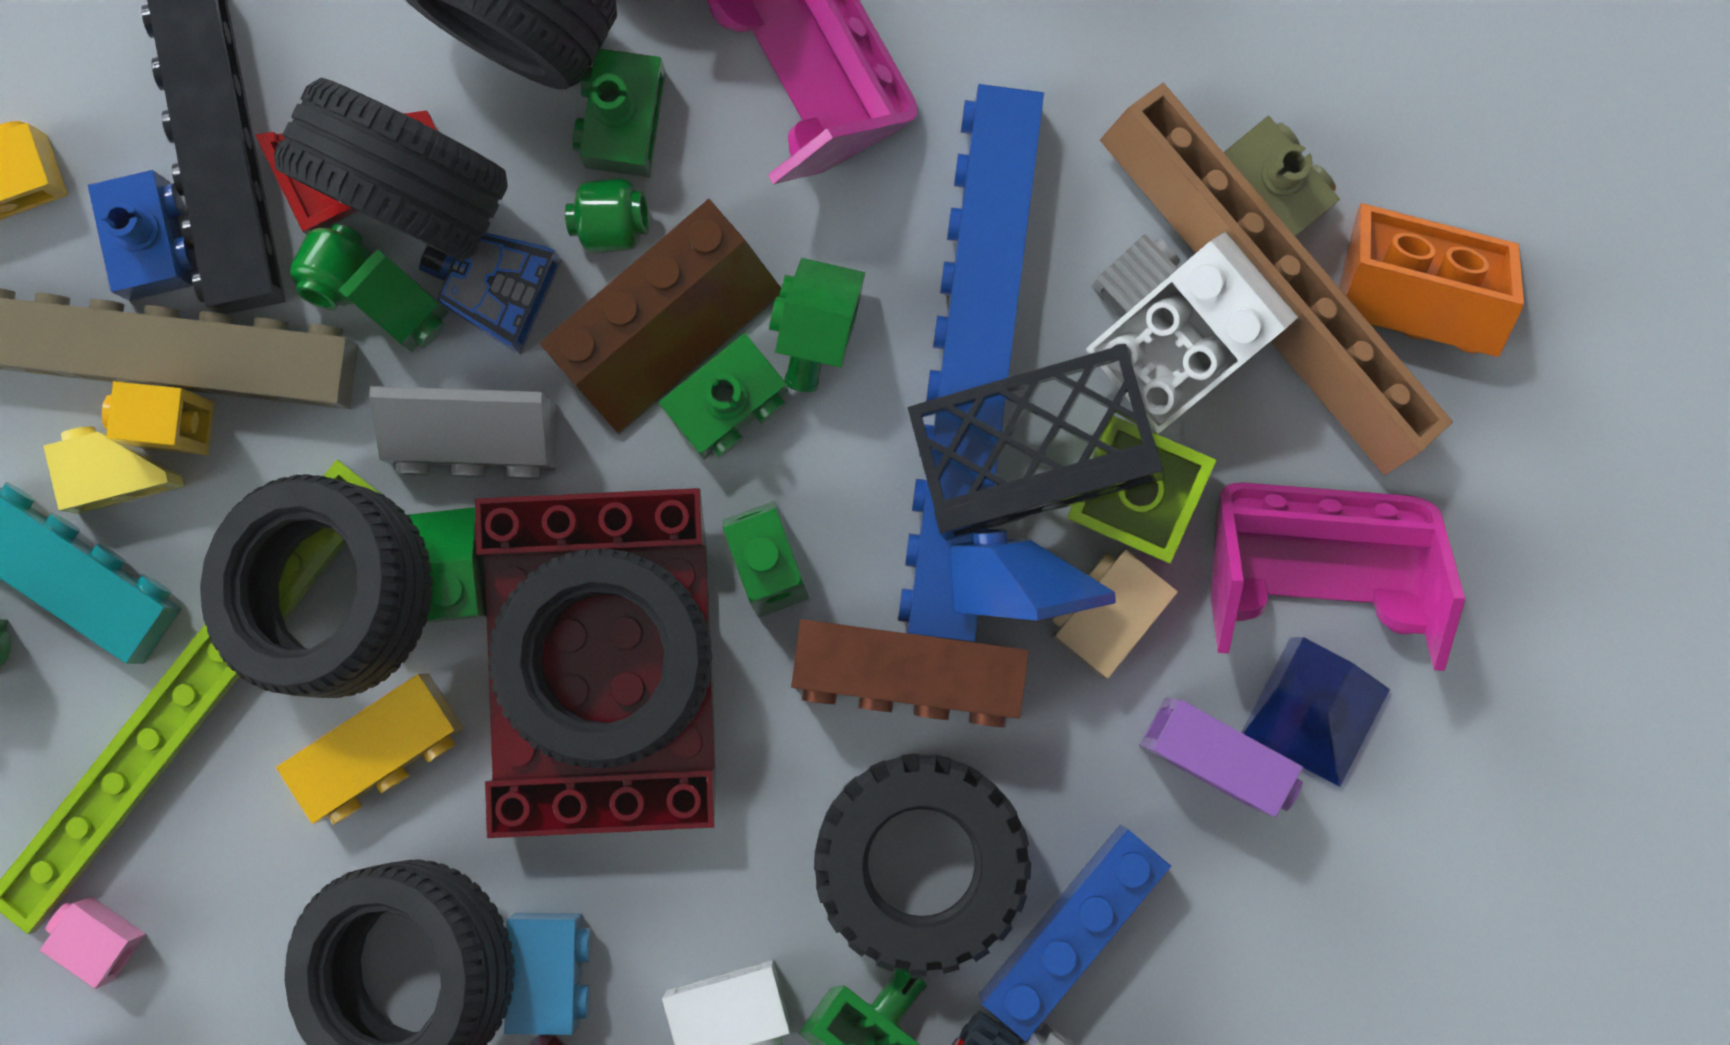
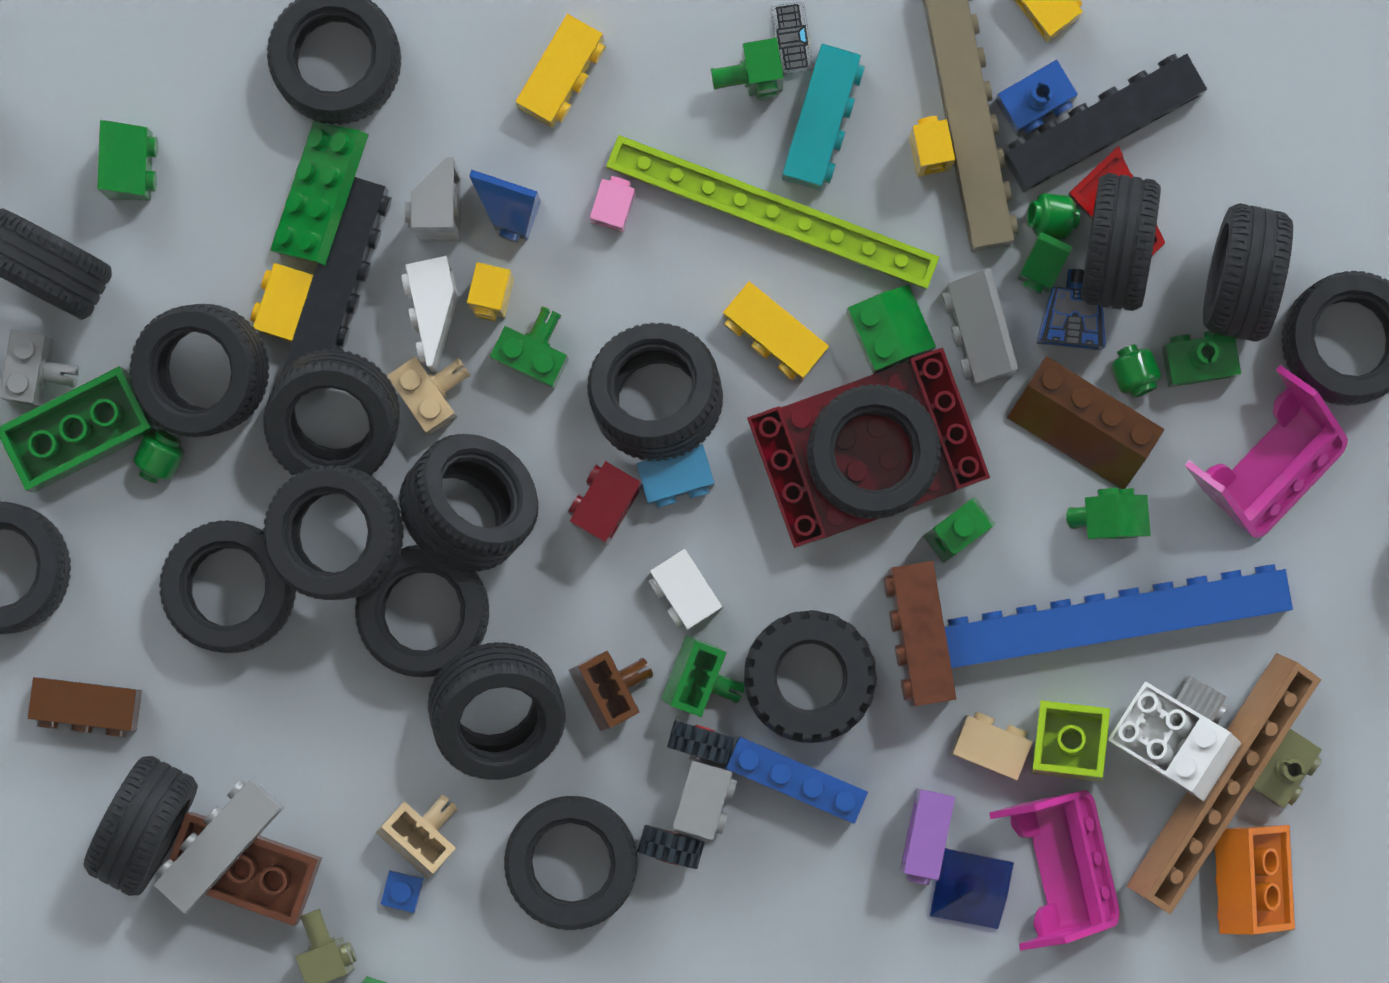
camera: 80 degrees right, 0 degrees up
(102, 472) = (889, 121): light yellow slope -> none
(245, 572) = (864, 229): black tyre -> none
(726, 397) = (1048, 475): green brick -> none
(1019, 580) = (995, 681): blue slope -> none
(1049, 489) = (1054, 684): black fence -> none

